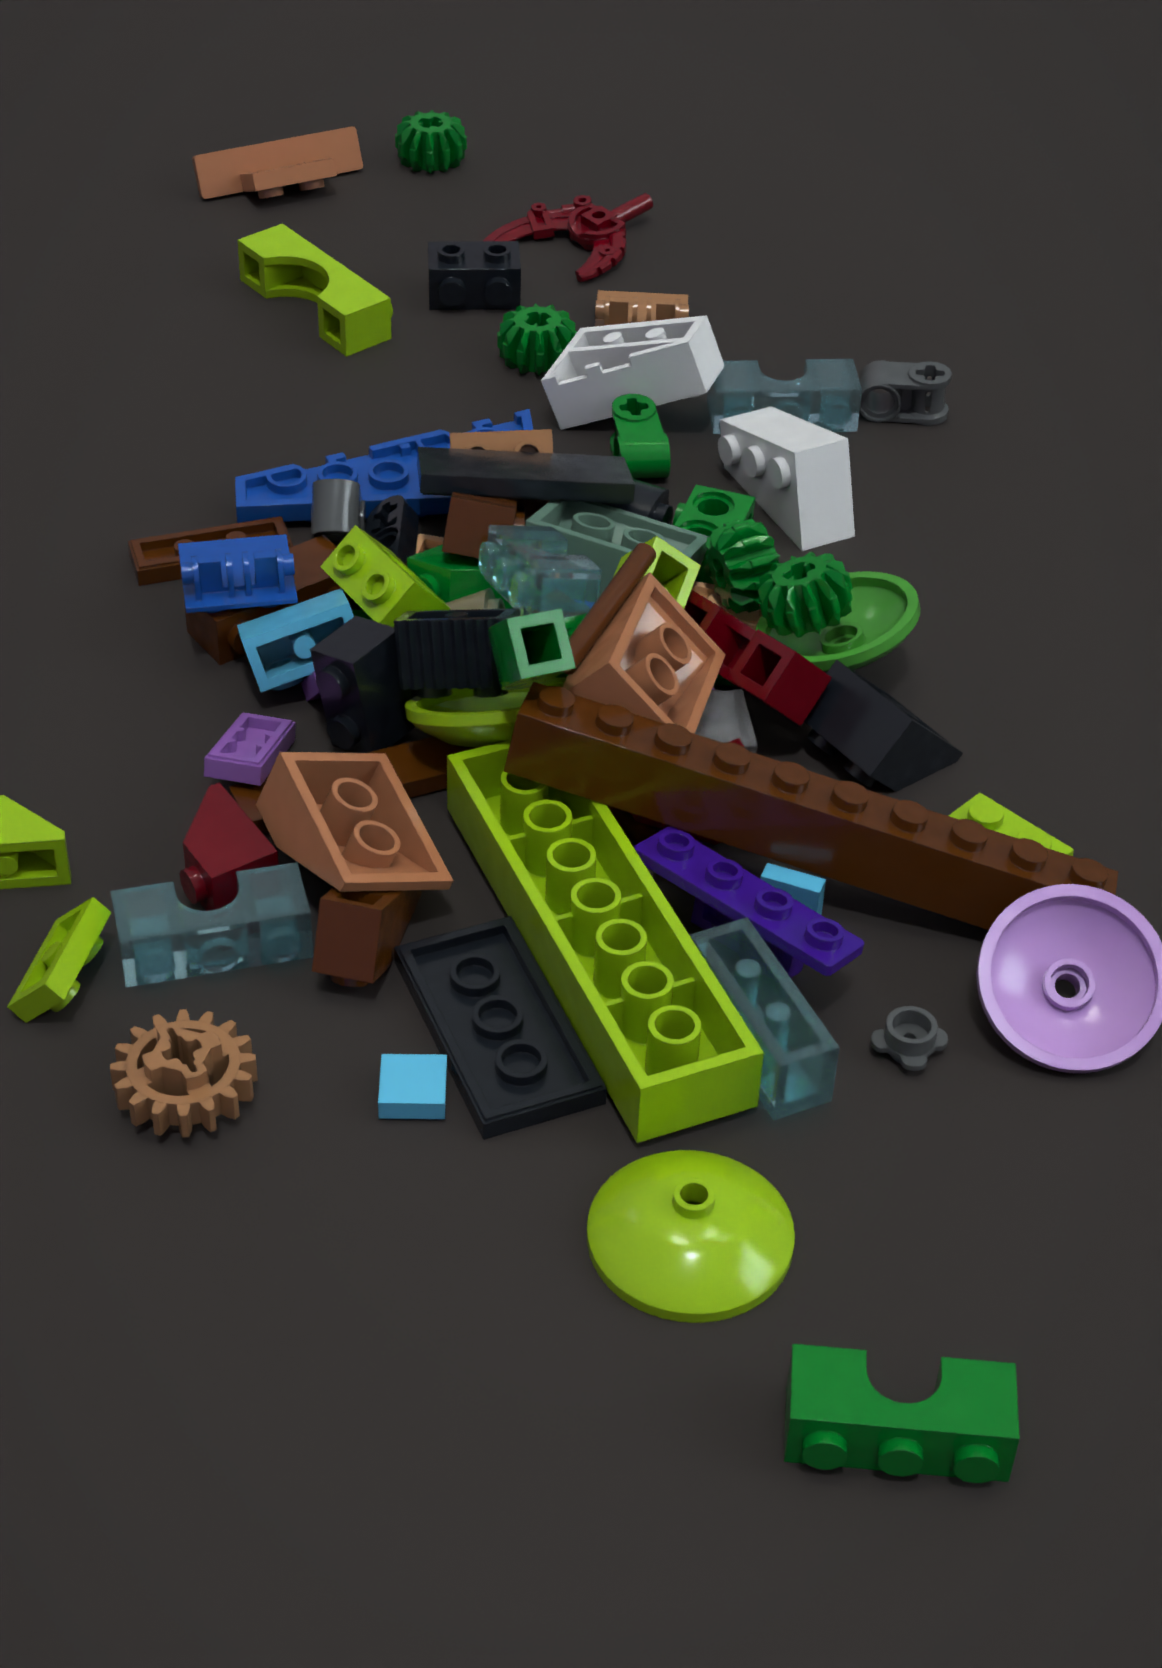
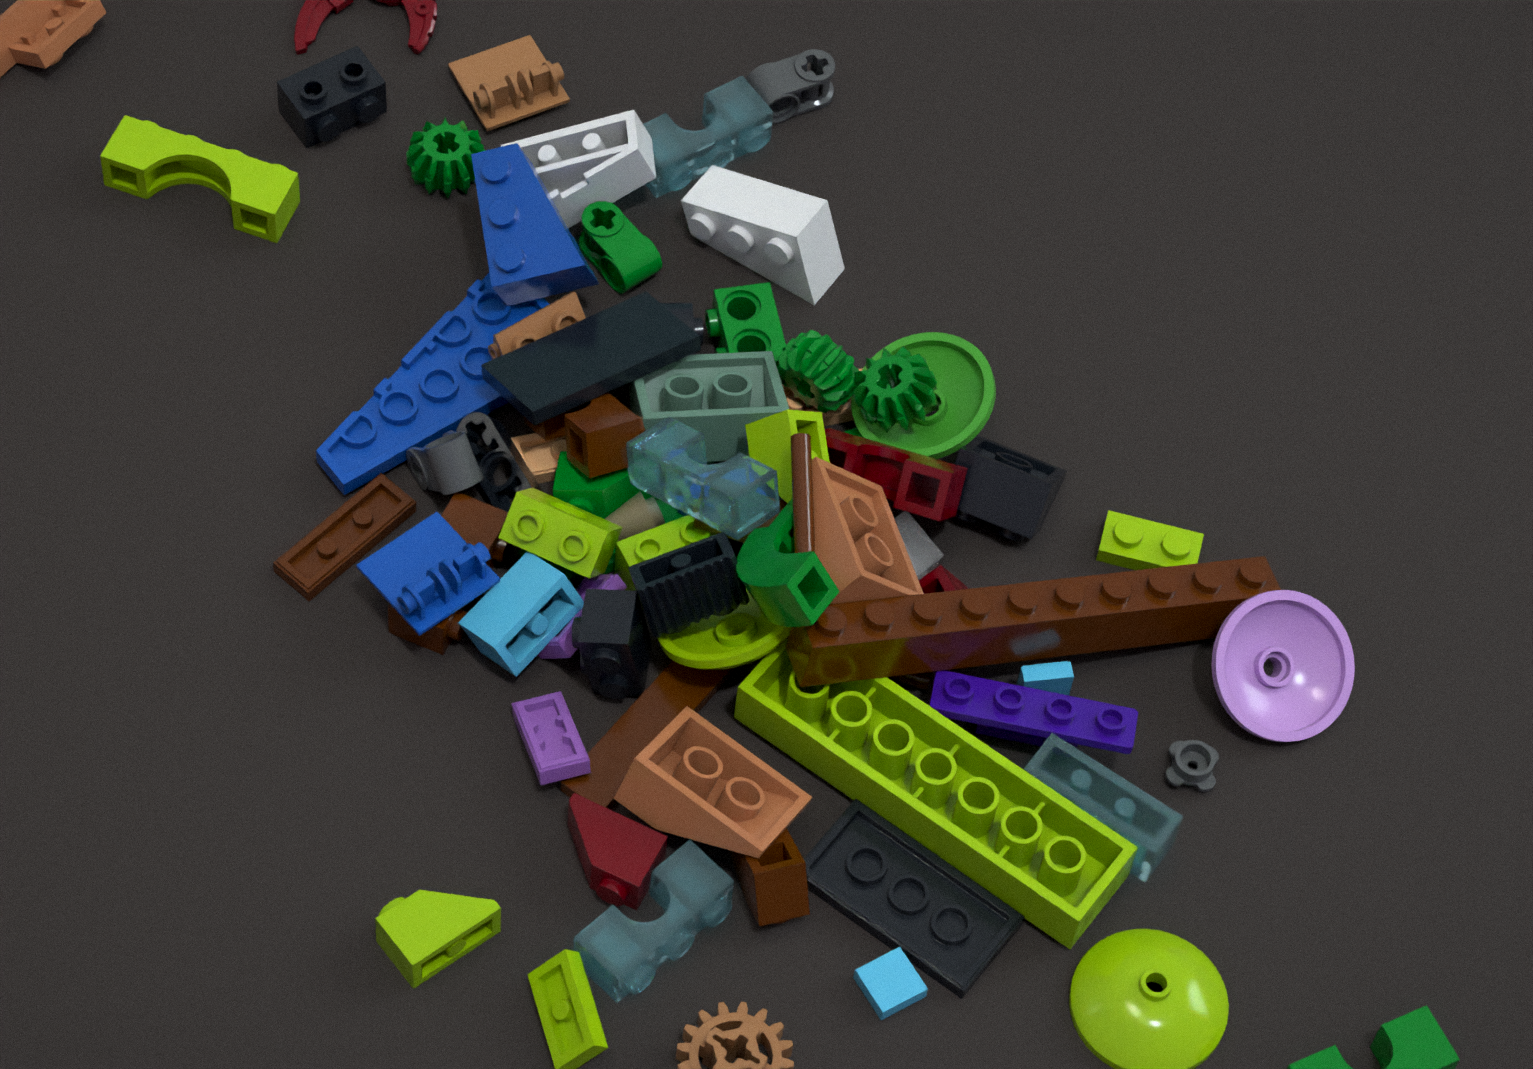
camera: 35 degrees left, 15 degrees up
(541, 371) = (523, 231): none -> blue wedge

